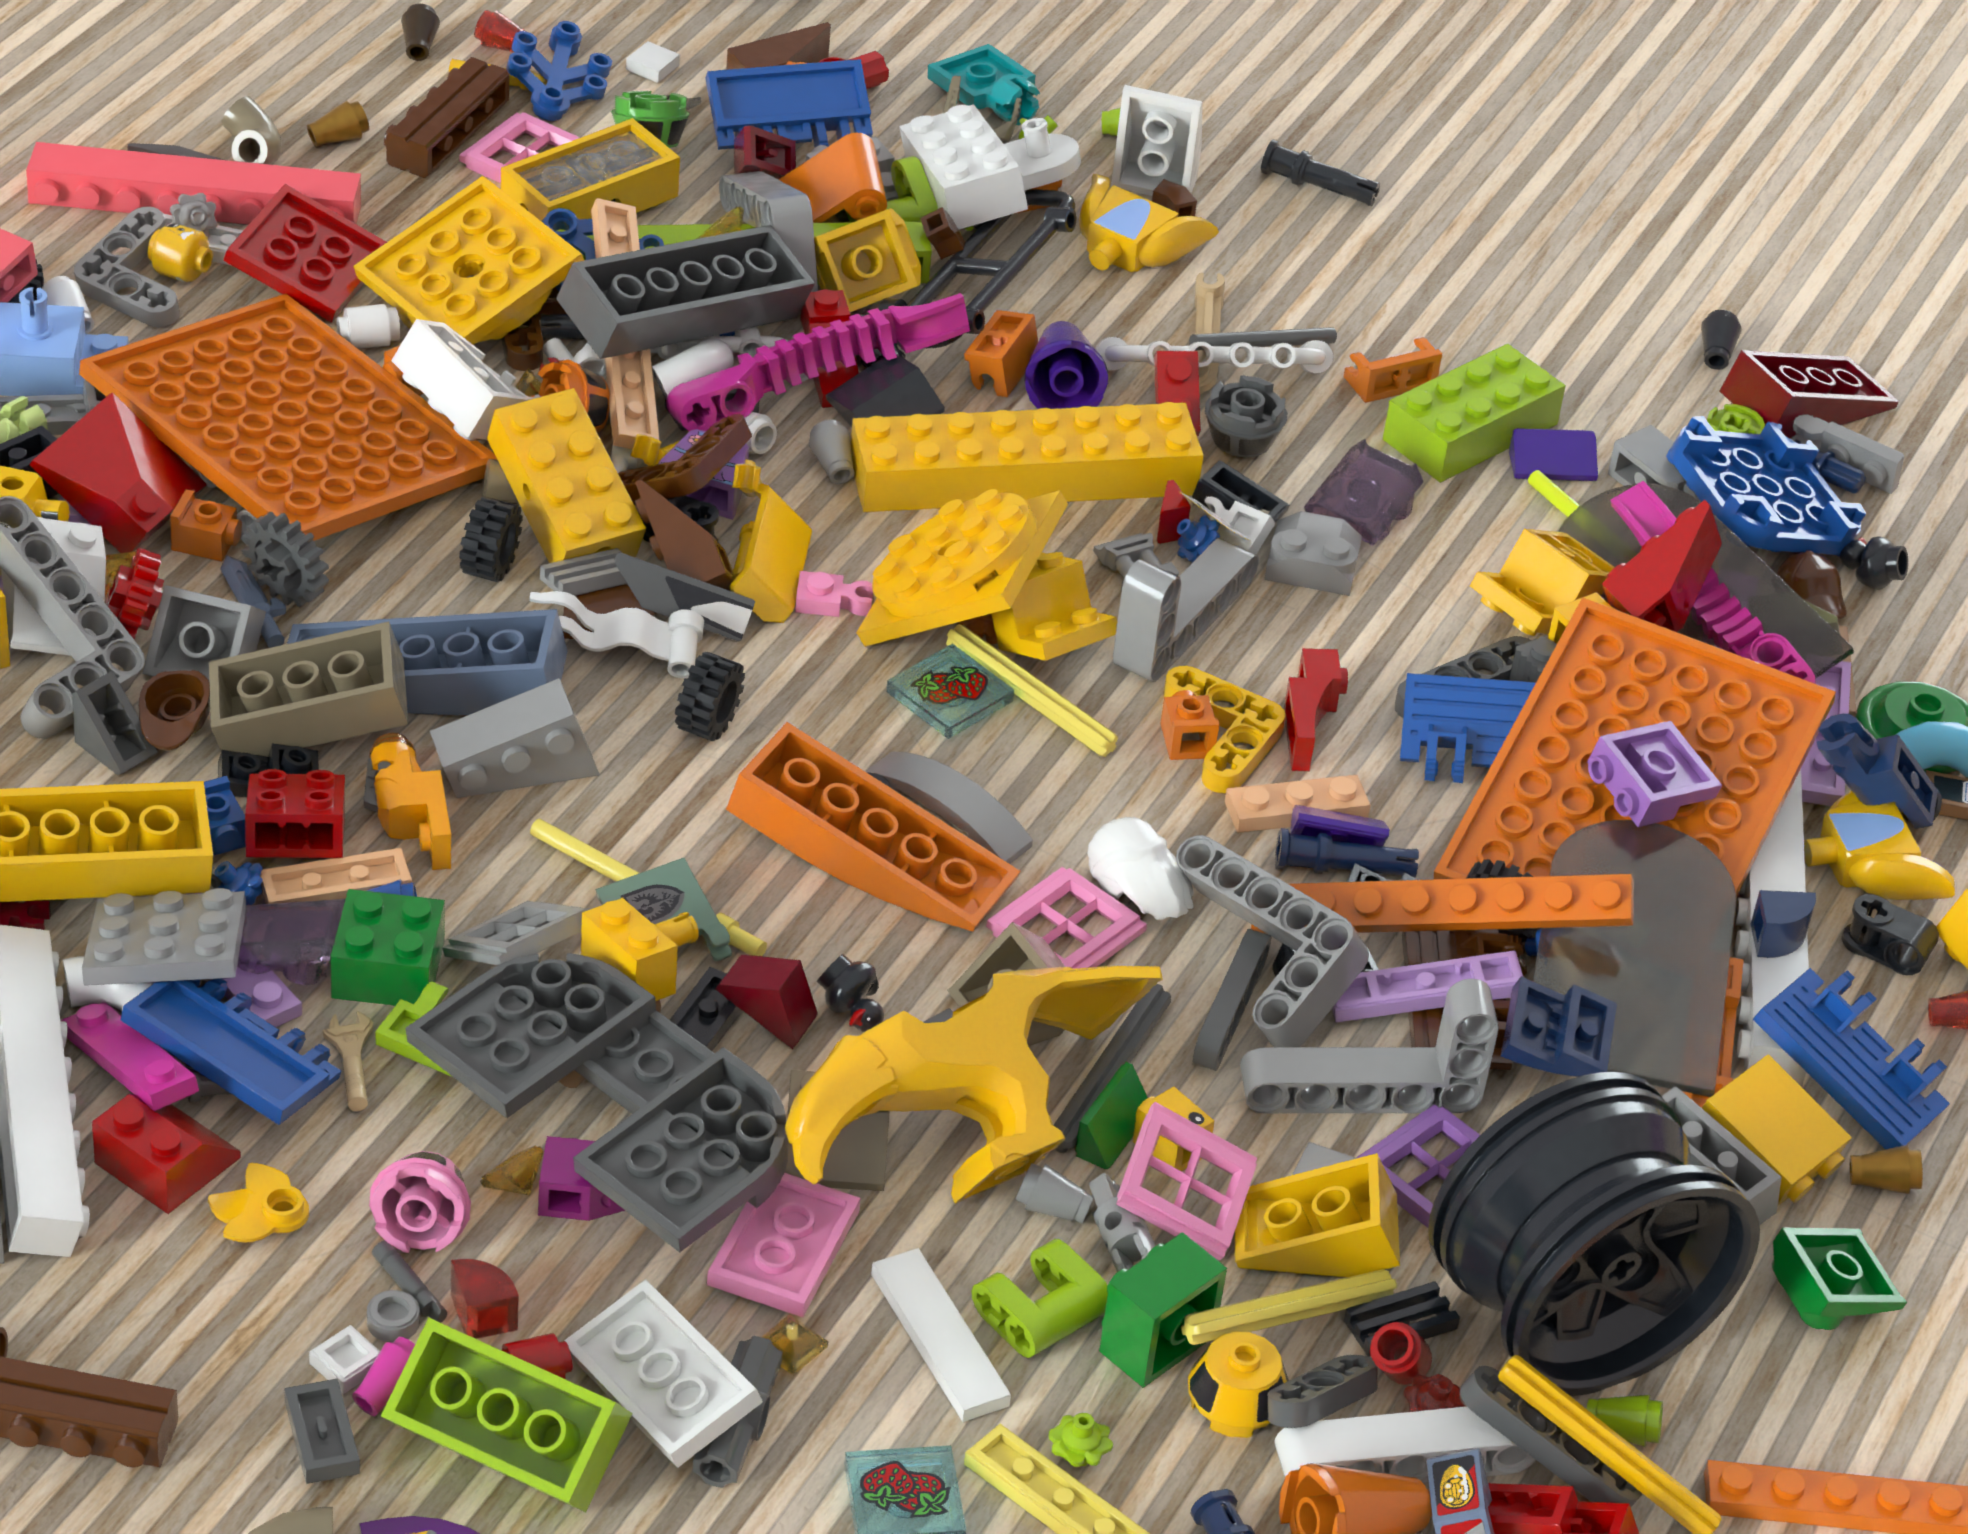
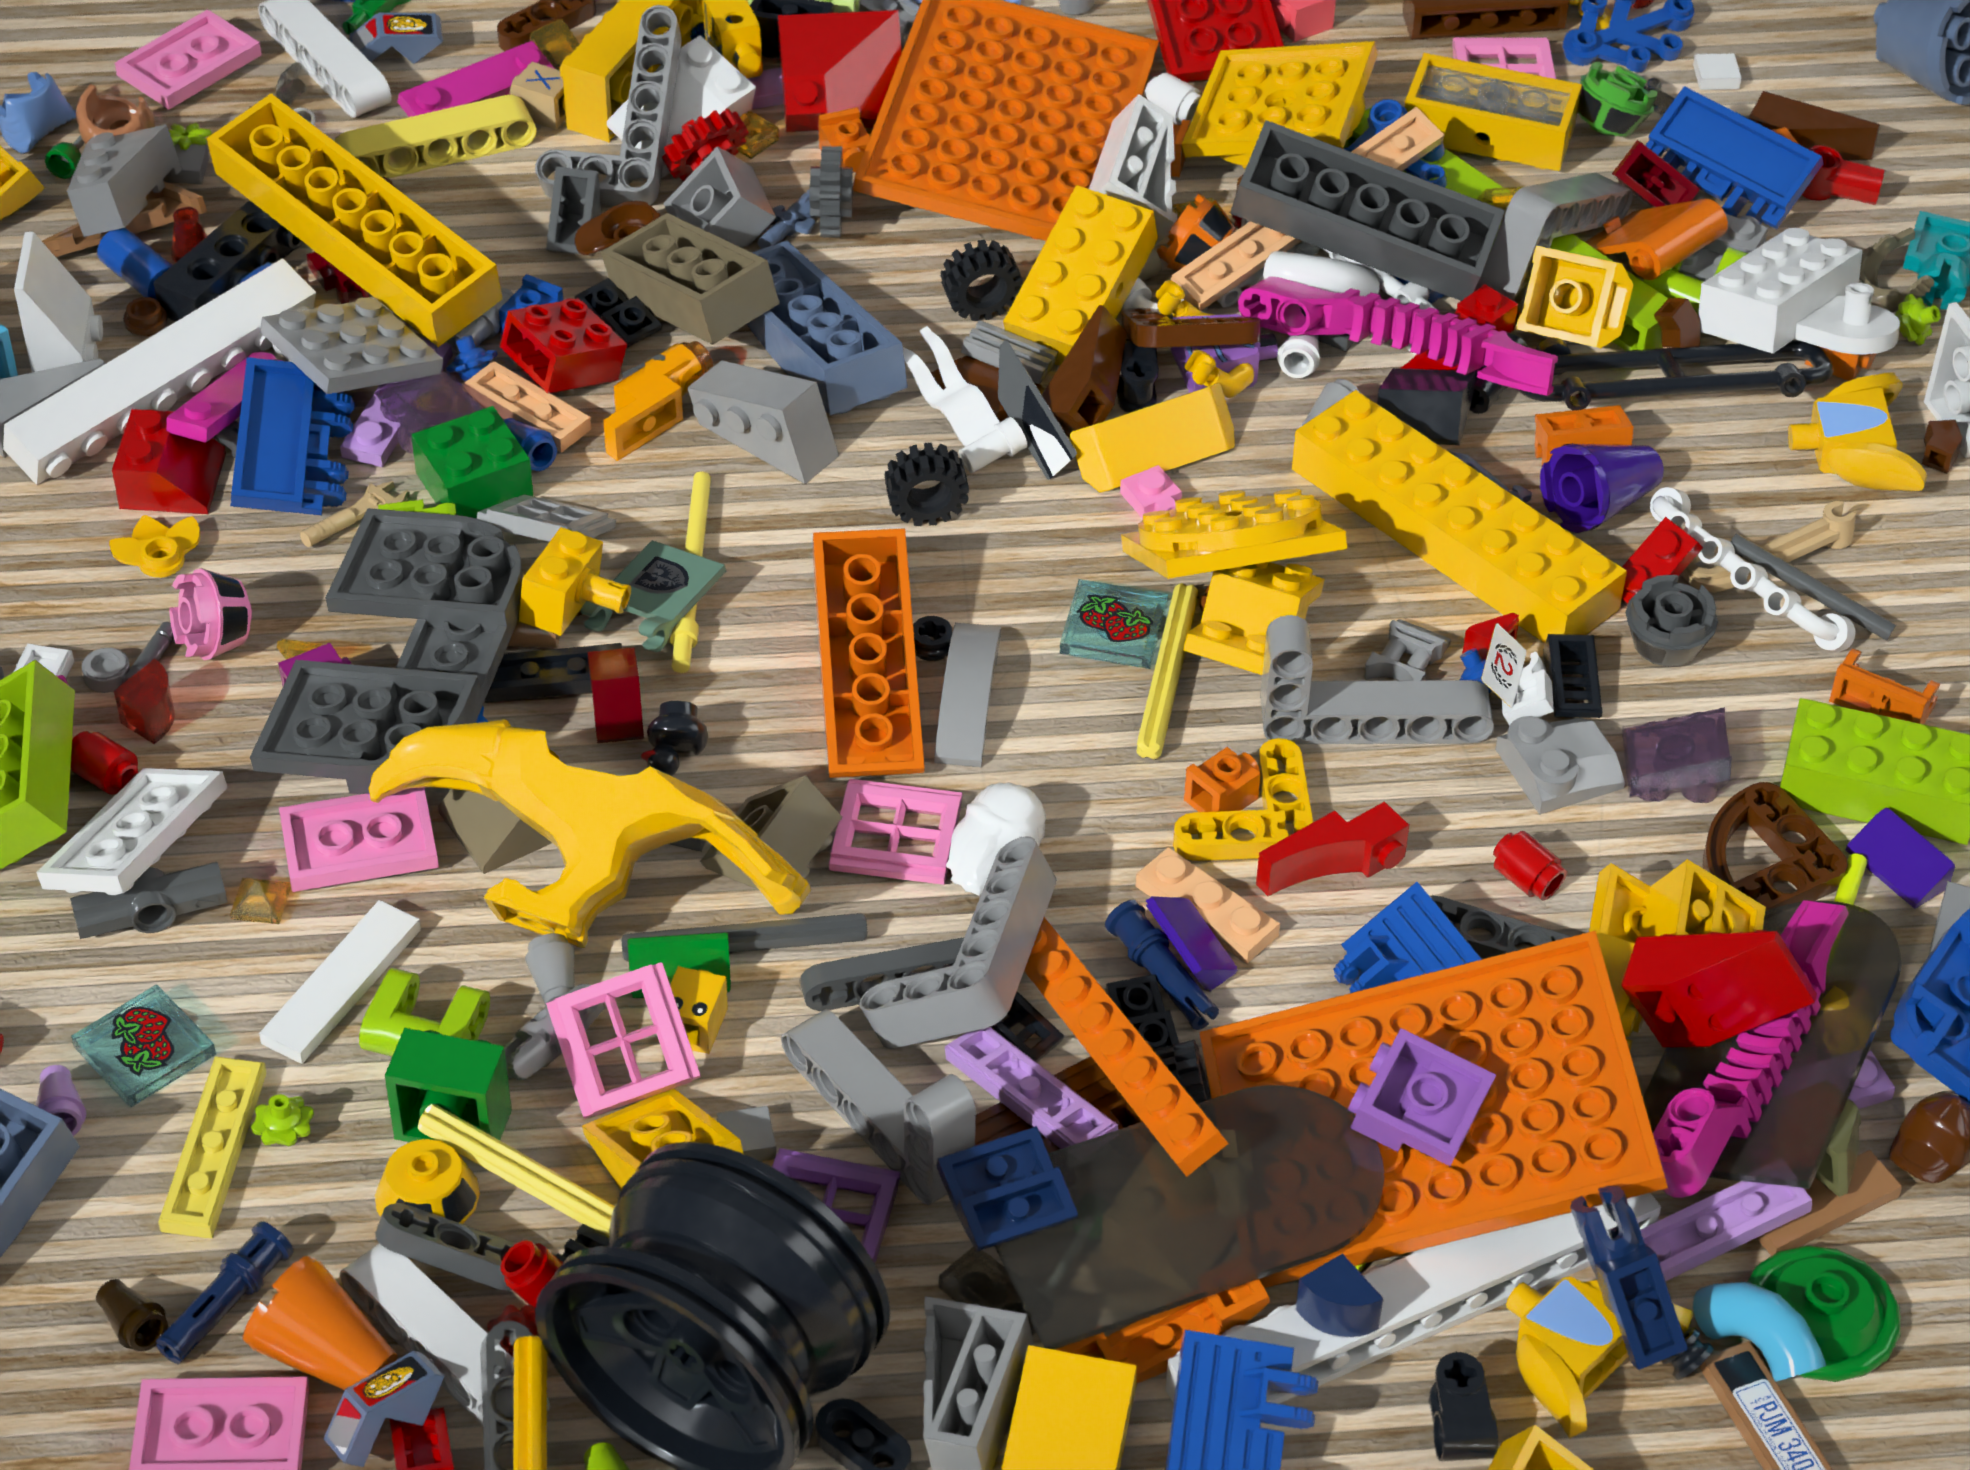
camera: 60 degrees right, 5 degrees up
(1410, 623) = (1529, 865): none -> red brick
(1517, 495) = (1797, 858): none -> reddish brown beam

